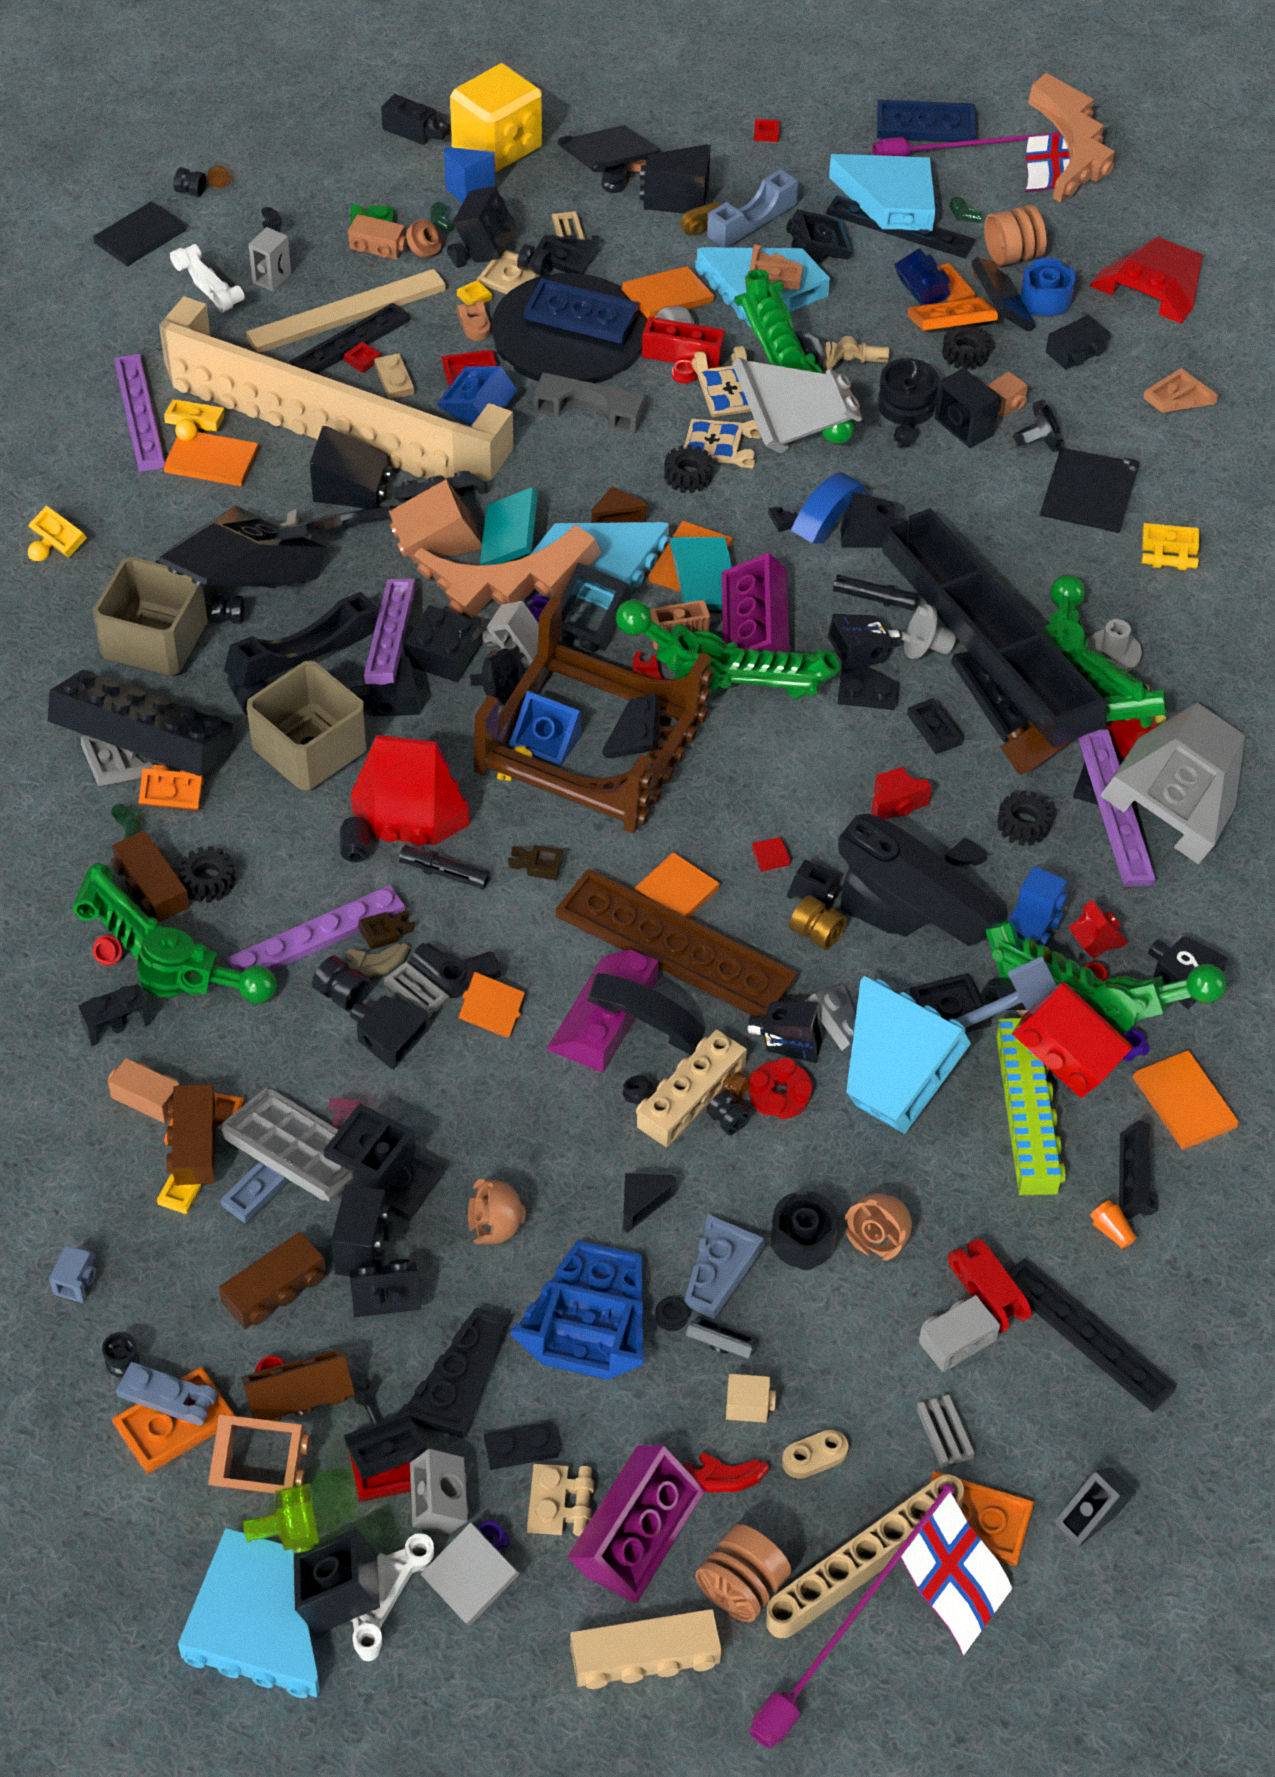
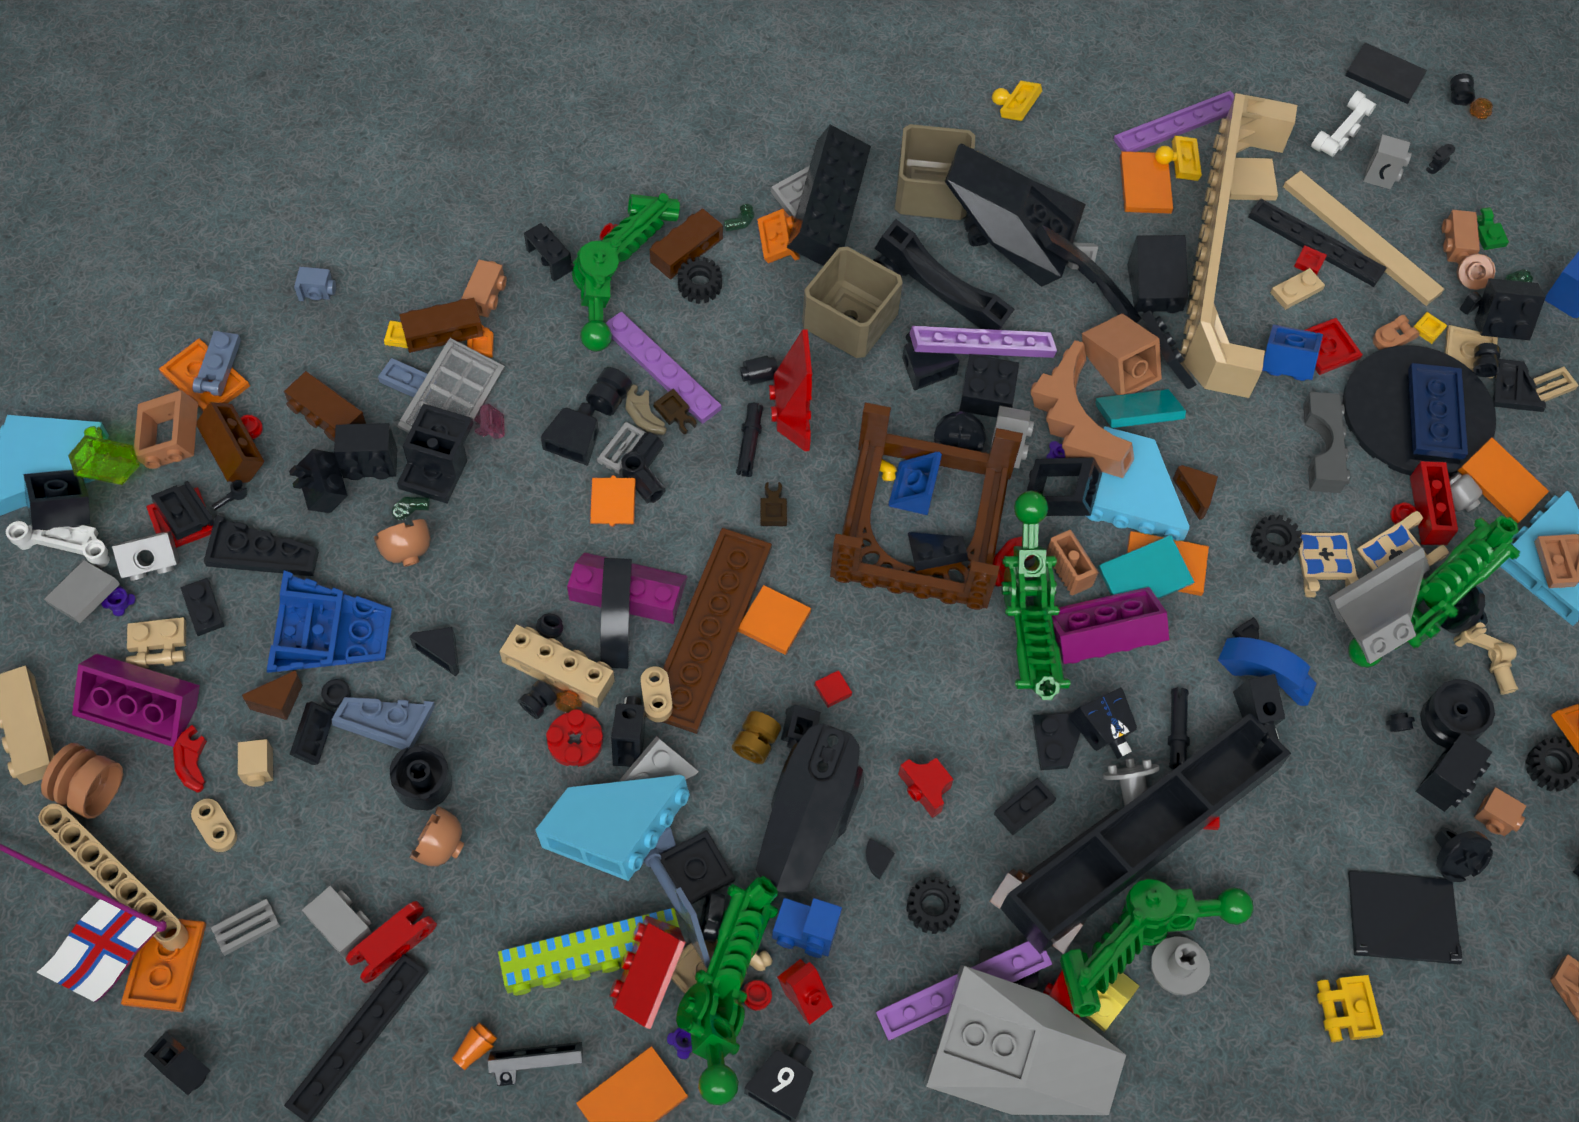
camera: 75 degrees right, 10 degrees up
(119, 1351) = (249, 329): black wheel -> none
(435, 1210) = (408, 505): none -> clear green arm
(669, 1368) = (276, 696): none -> reddish brown slope
(750, 997) = (656, 692): none -> tan plate

